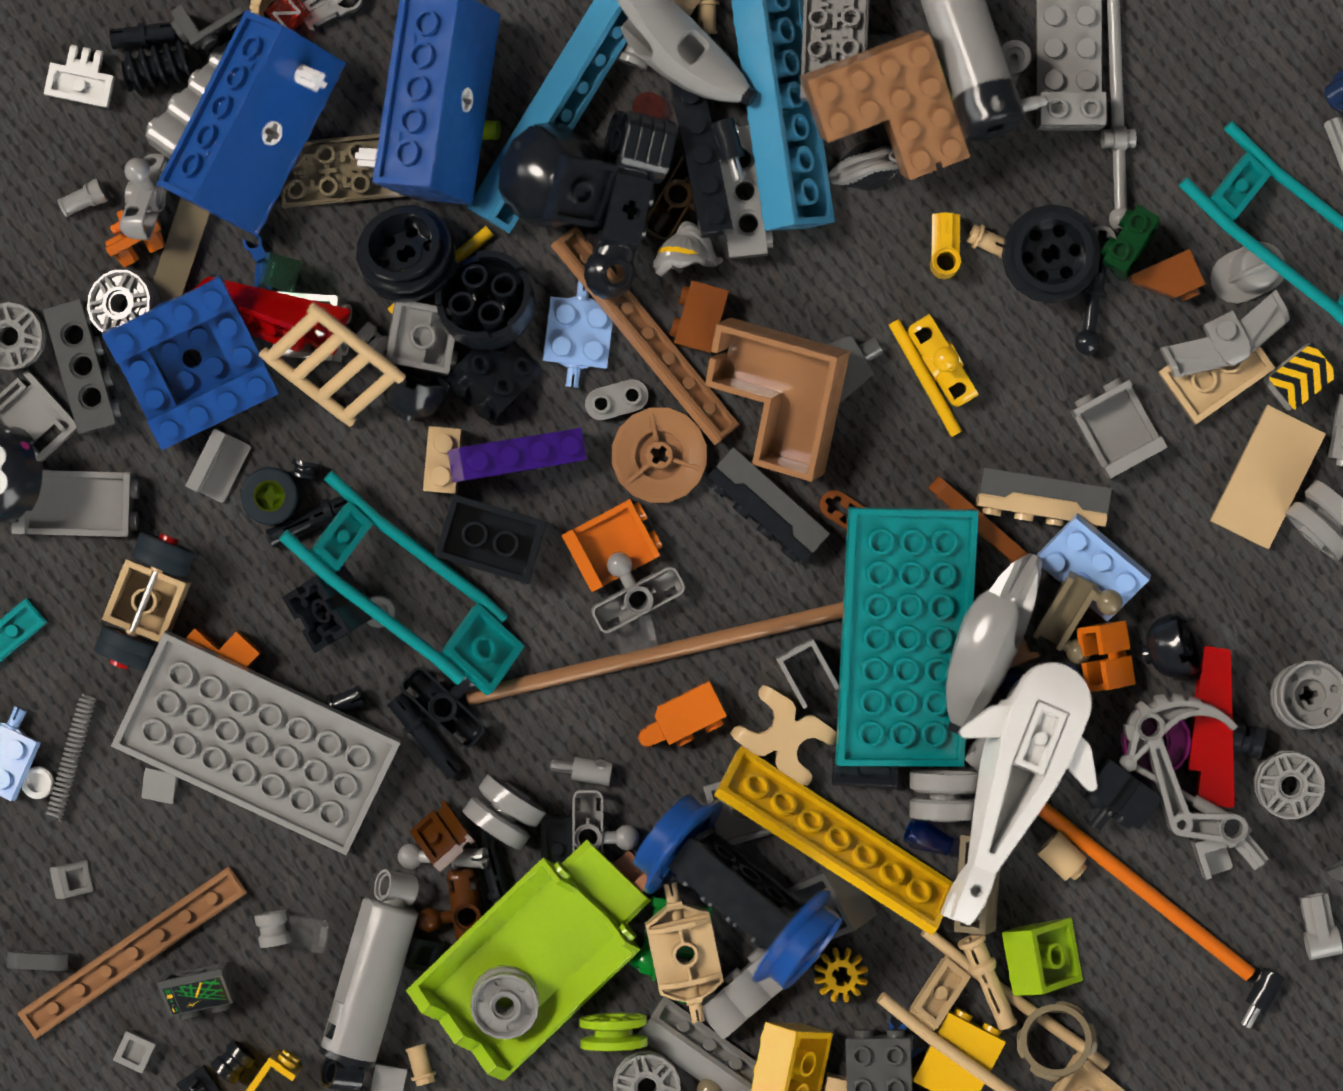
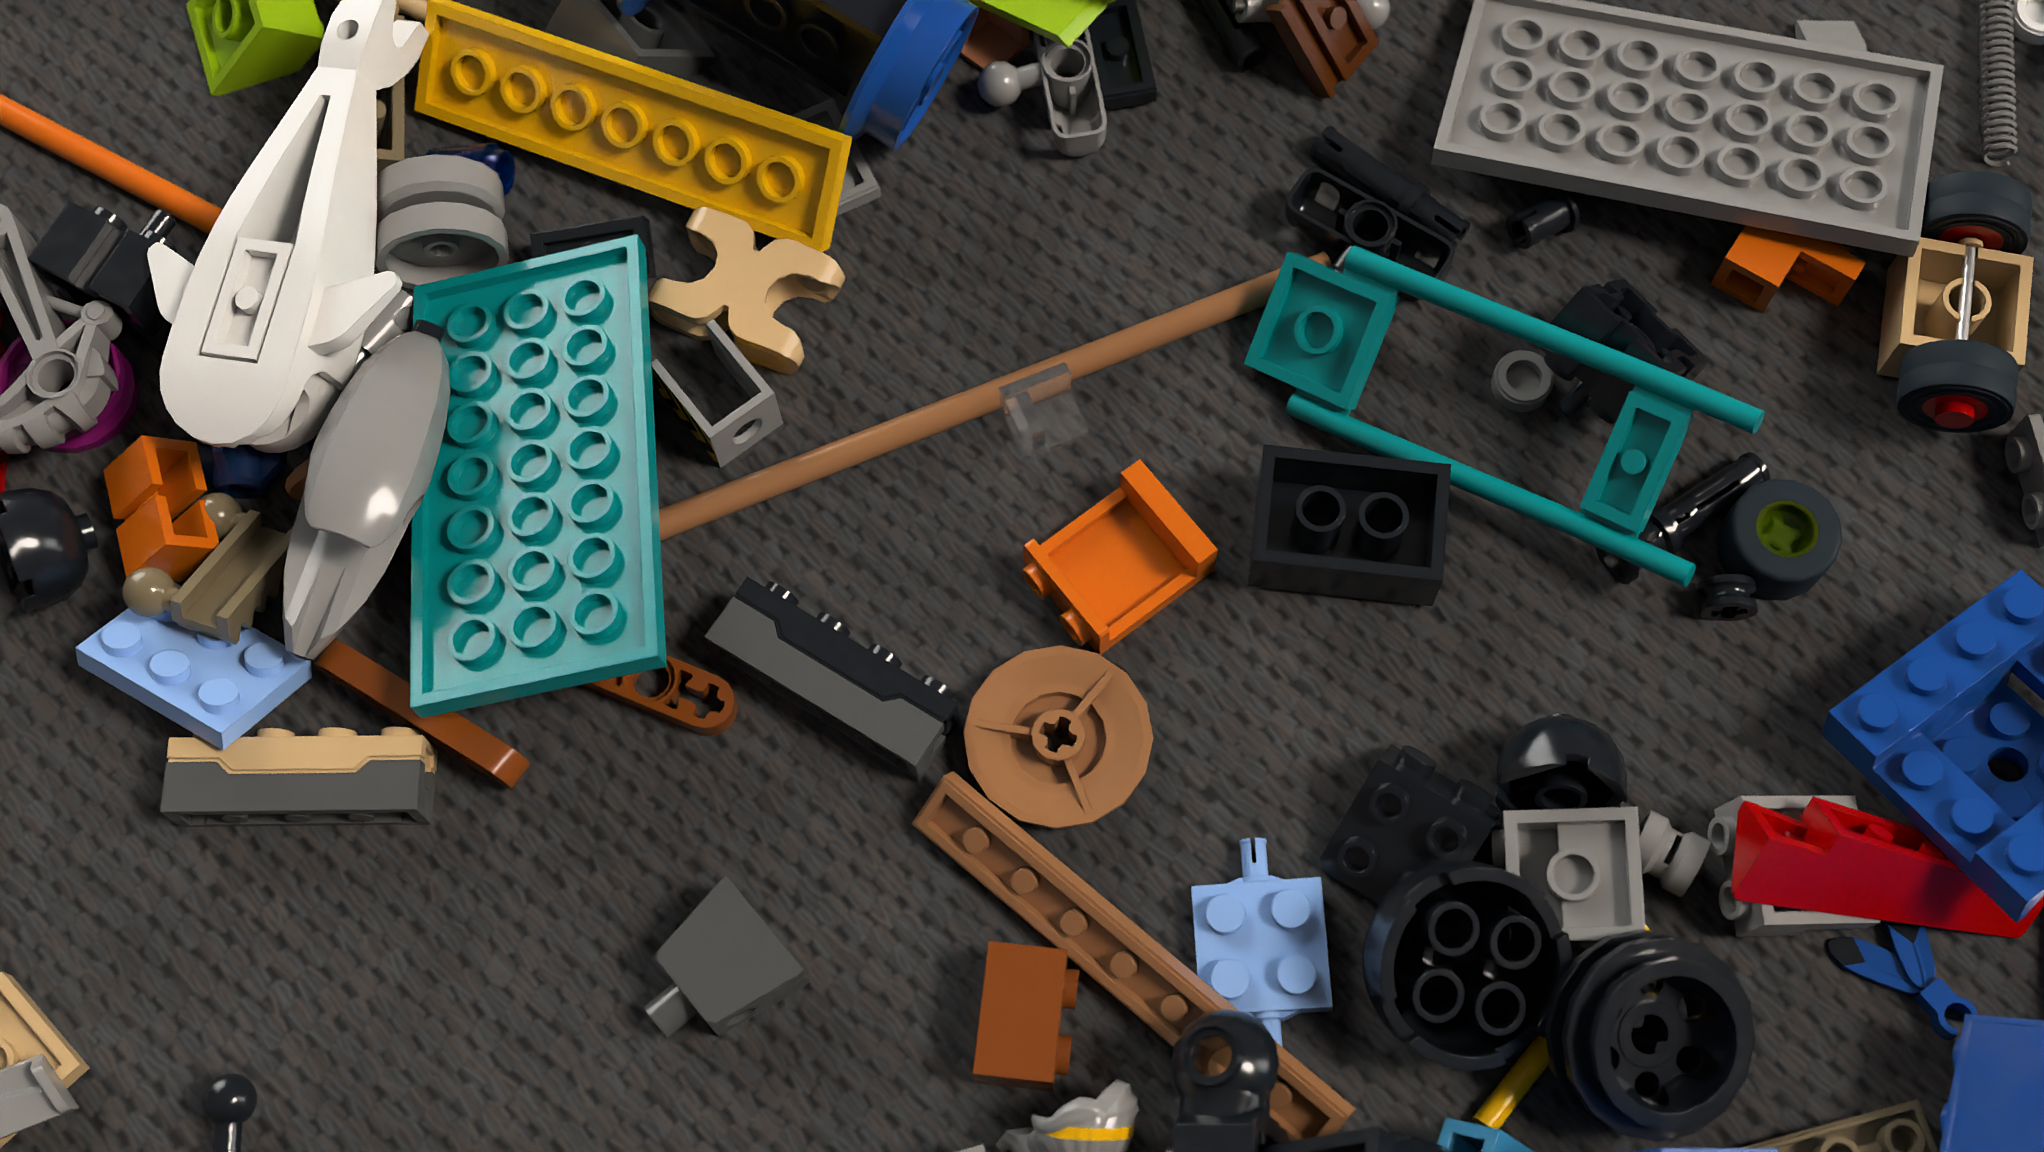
camera: 175 degrees right, 20 degrees down
(218, 465) = (1894, 582): light grey panel -> none
(279, 272) = (1891, 956): clear green brick -> none
(323, 395) = (1752, 821): tan bar -> none
(437, 466) = (1472, 655): tan brick -> none
(506, 808) = (1223, 74): light grey wheel -> none
(516, 455) = (1334, 674): dark purple brick -> none
(585, 770) = (1093, 180): light grey piece -> none
(616, 399) = (1161, 830): light grey plate -> none
(620, 566) = (1061, 447): light grey piece -> none
(684, 716) = (931, 289): orange hinge -> none
(794, 380) = (817, 912): medium nougat piece -> none
(925, 378) = (558, 978): yellow piece -> none
(942, 361) = (523, 1012): yellow piece -> none
(1062, 856) = (214, 167): tan brick -> none
(1117, 428) = (160, 937): light grey panel -> none

